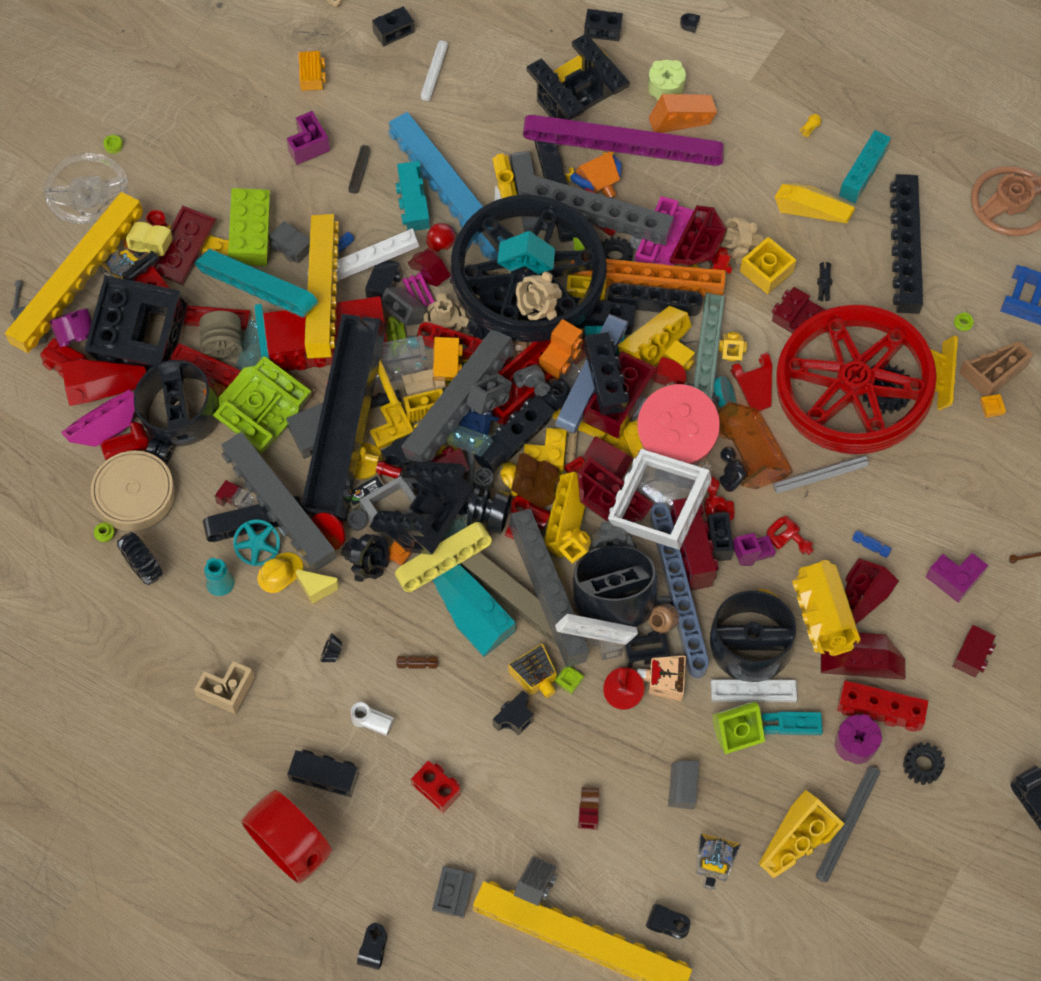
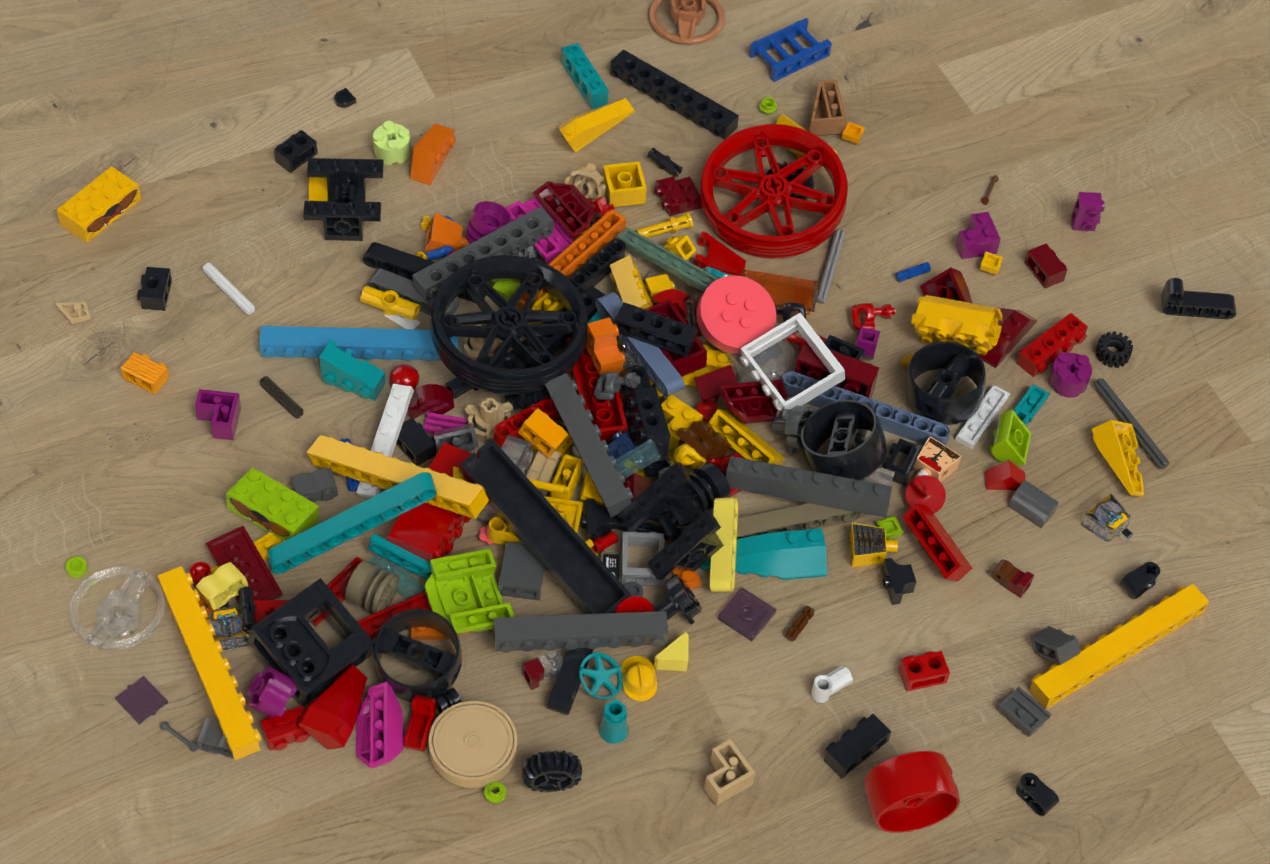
camera: 60 degrees left, 10 degrees down
(31, 256) = (141, 700): none -> clear purple piece
(331, 649) = (745, 676): black piece -> none
(398, 617) = (747, 614): none -> clear purple tile
(489, 393) = (609, 417): dark grey brick -> none
(526, 251) = (506, 308): teal brick -> none
(541, 296) = (558, 323): tan piece -> none
(574, 544) = (787, 444): yellow brick -> none
(576, 724) = (937, 542): none -> red brick
(596, 629) = (878, 469): white tile -> none
(623, 140) = (424, 203): magenta beam -> none
(636, 189) = (485, 219): none -> magenta wheel
(664, 618) = (891, 429): medium nougat head -> none
(698, 747) = (1004, 477): none -> red slope
(759, 327) = (673, 223): none -> yellow pin
(813, 122) = (514, 83): yellow pin -> none
(937, 603) = (991, 263): none -> yellow plate

